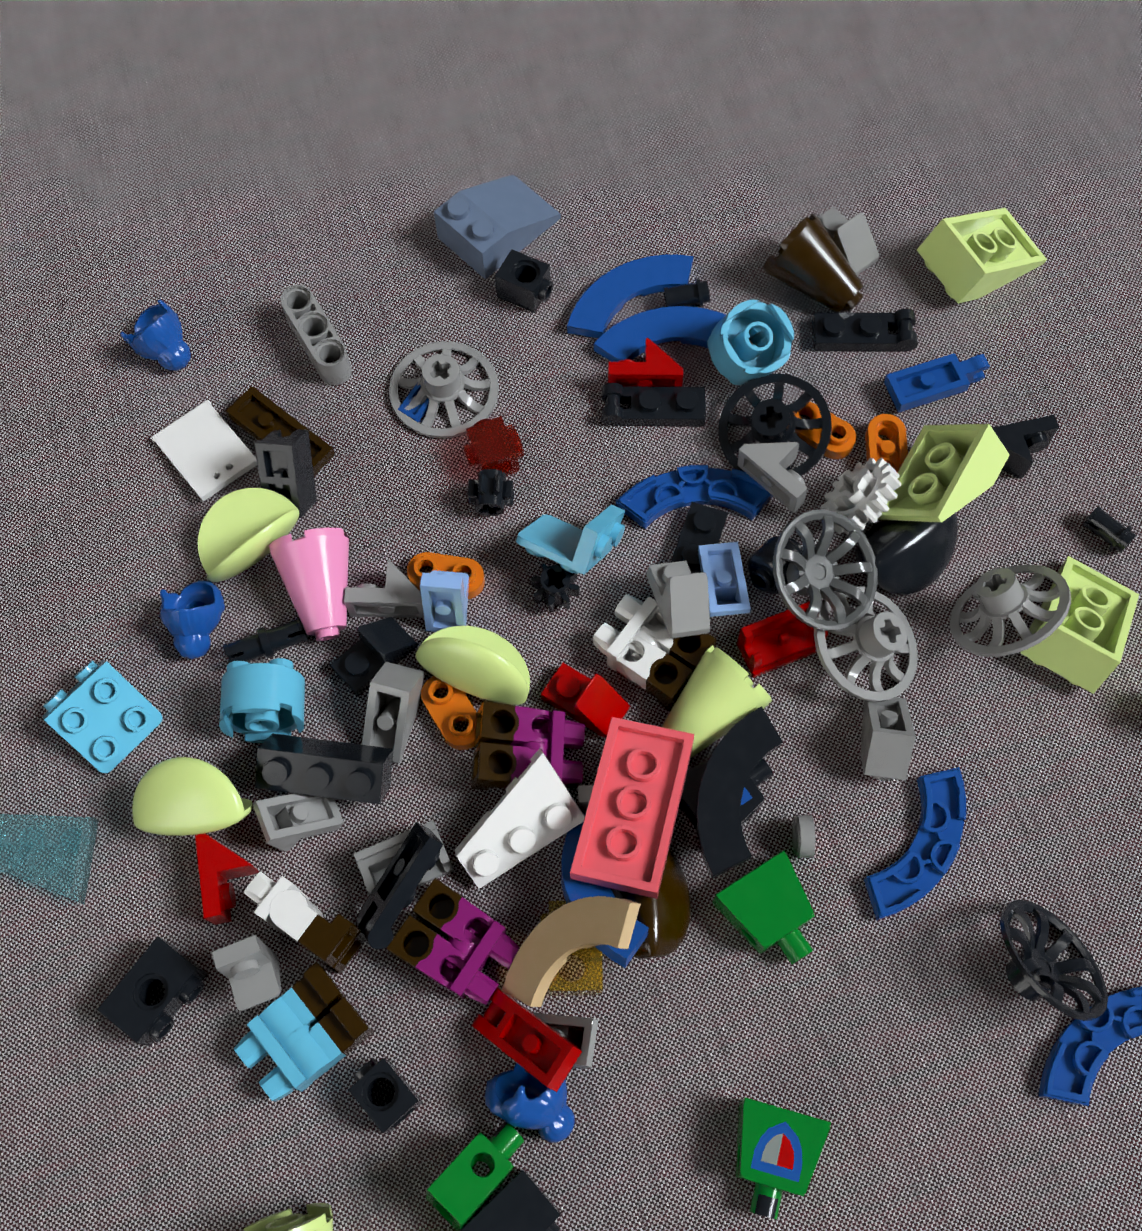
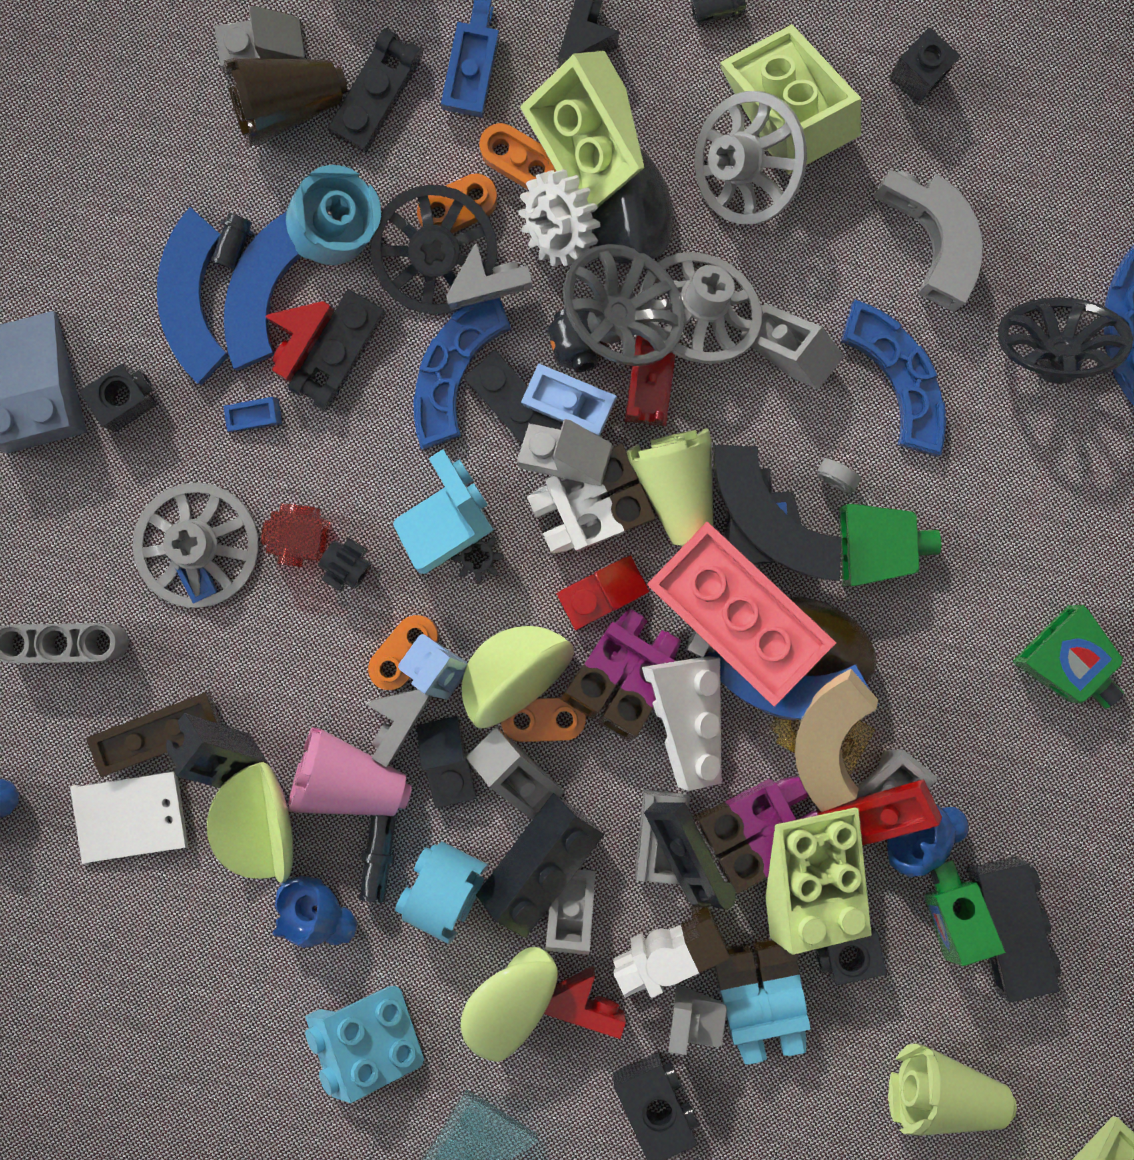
camera: 60 degrees left, 20 degrees up
(437, 1012) = (817, 882): none -> yellowish green slope
(568, 376) = (253, 414): none -> blue piece
(1078, 808) = (951, 229): none -> light grey arch

